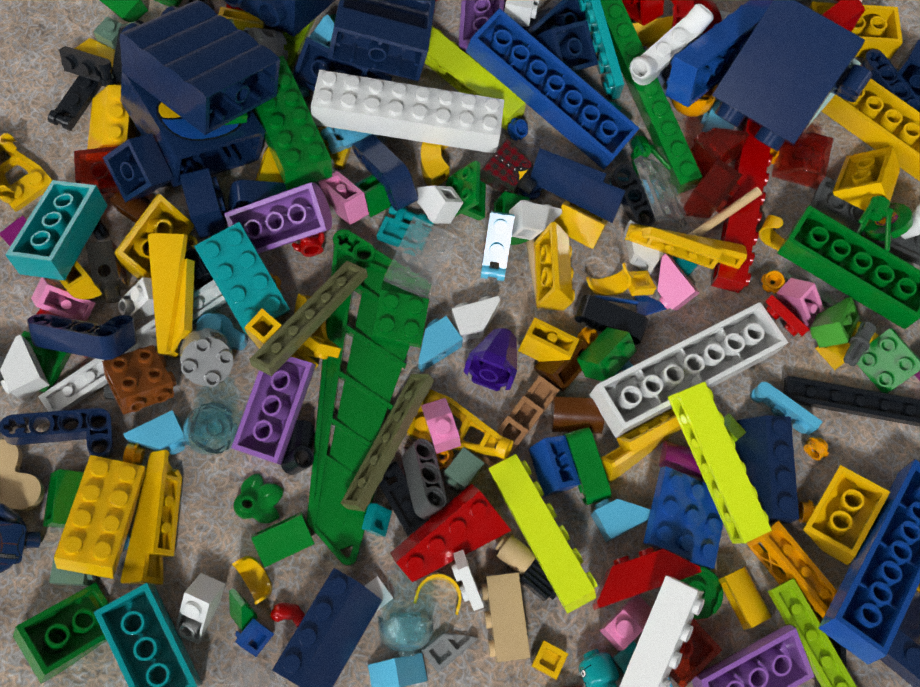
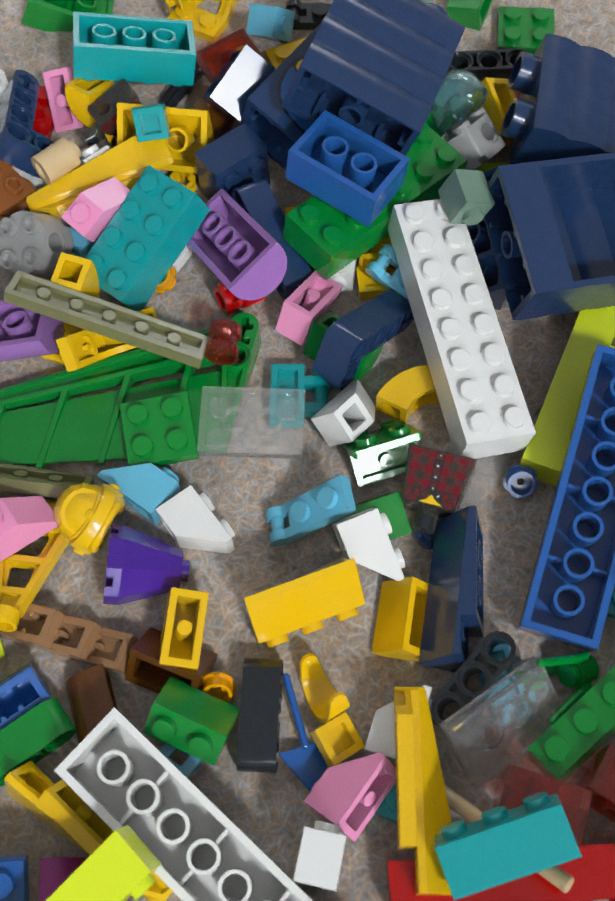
camera: 80 degrees right, 5 degrees down
(81, 129) = (270, 23): none -> medium azure slope
(143, 315) = (56, 160): none -> tan brick
(153, 232) = (151, 122): none -> teal plate
(206, 296) = (95, 208): none -> bright pink slope
(276, 117) = (346, 168): none -> blue brick
(332, 60) = (466, 197): none -> sand green brick
(357, 251) = (223, 347): none -> clear red wheel
(452, 374) = (85, 514): none -> yellow helmet
(709, 306) = (320, 856): none -> white slope
(736, 206) = (505, 845): none -> teal brick

